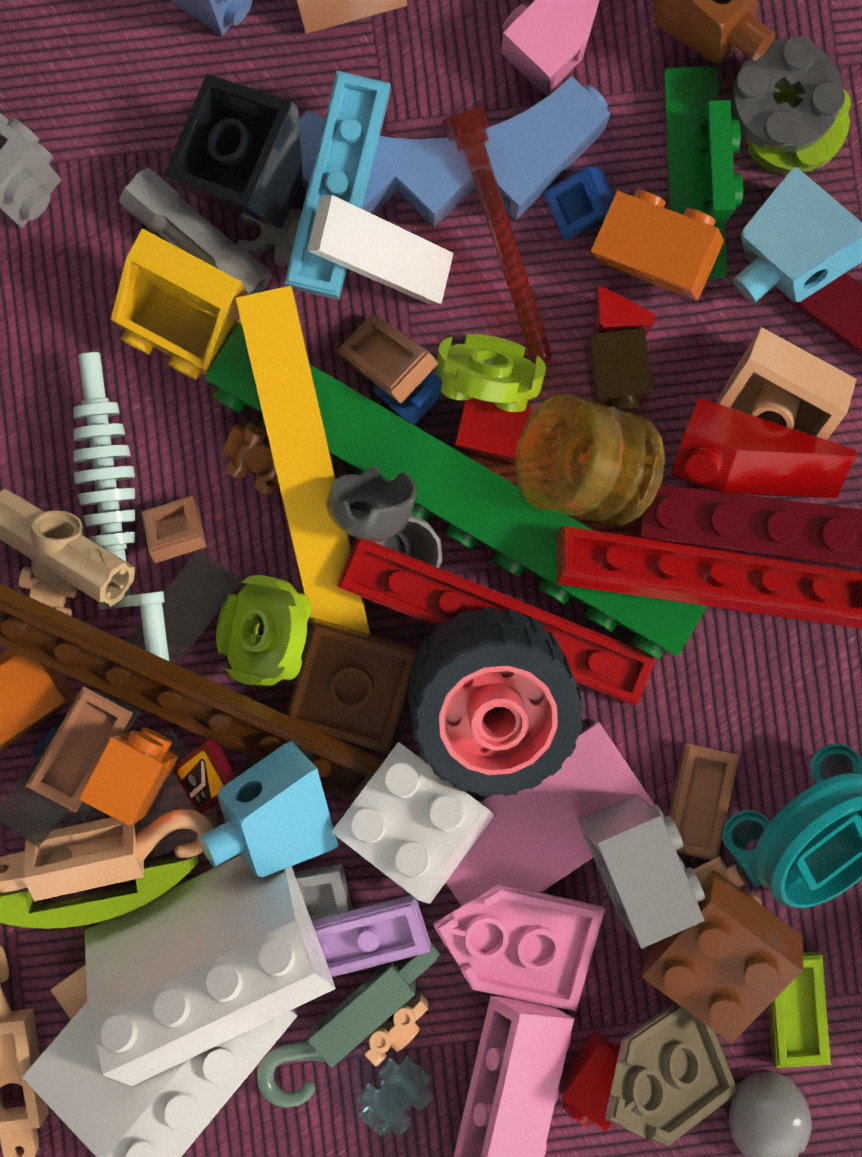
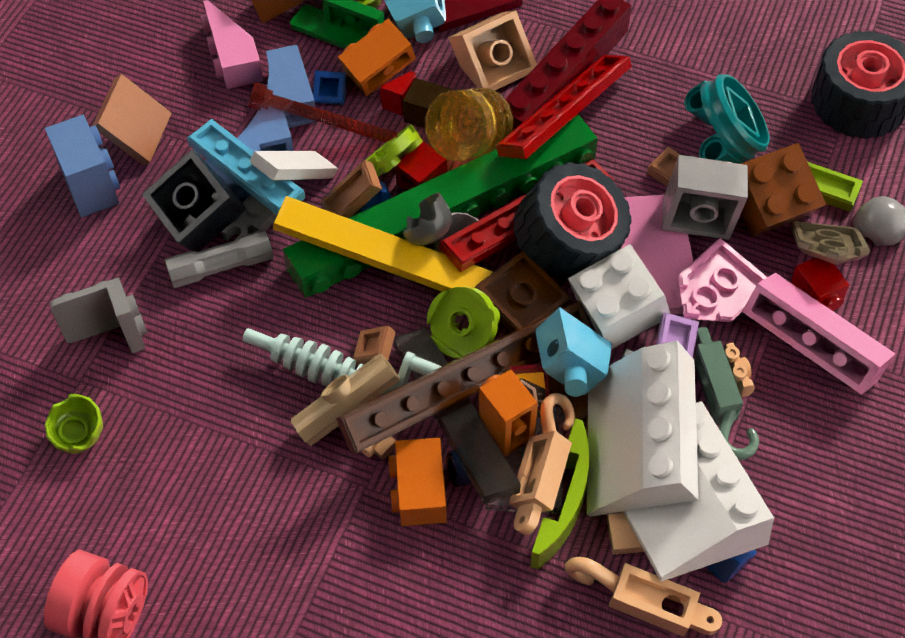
camera: 60 degrees left, 30 degrees down
(77, 748) = (474, 435): nougat tile -> none
(175, 304) = (246, 252): yellow piece -> none
(251, 450) = (356, 287): dark orange piece -> none
(400, 1087) = (778, 396): clear light blue piece -> none
(758, 457) = (514, 61): red slope -> none

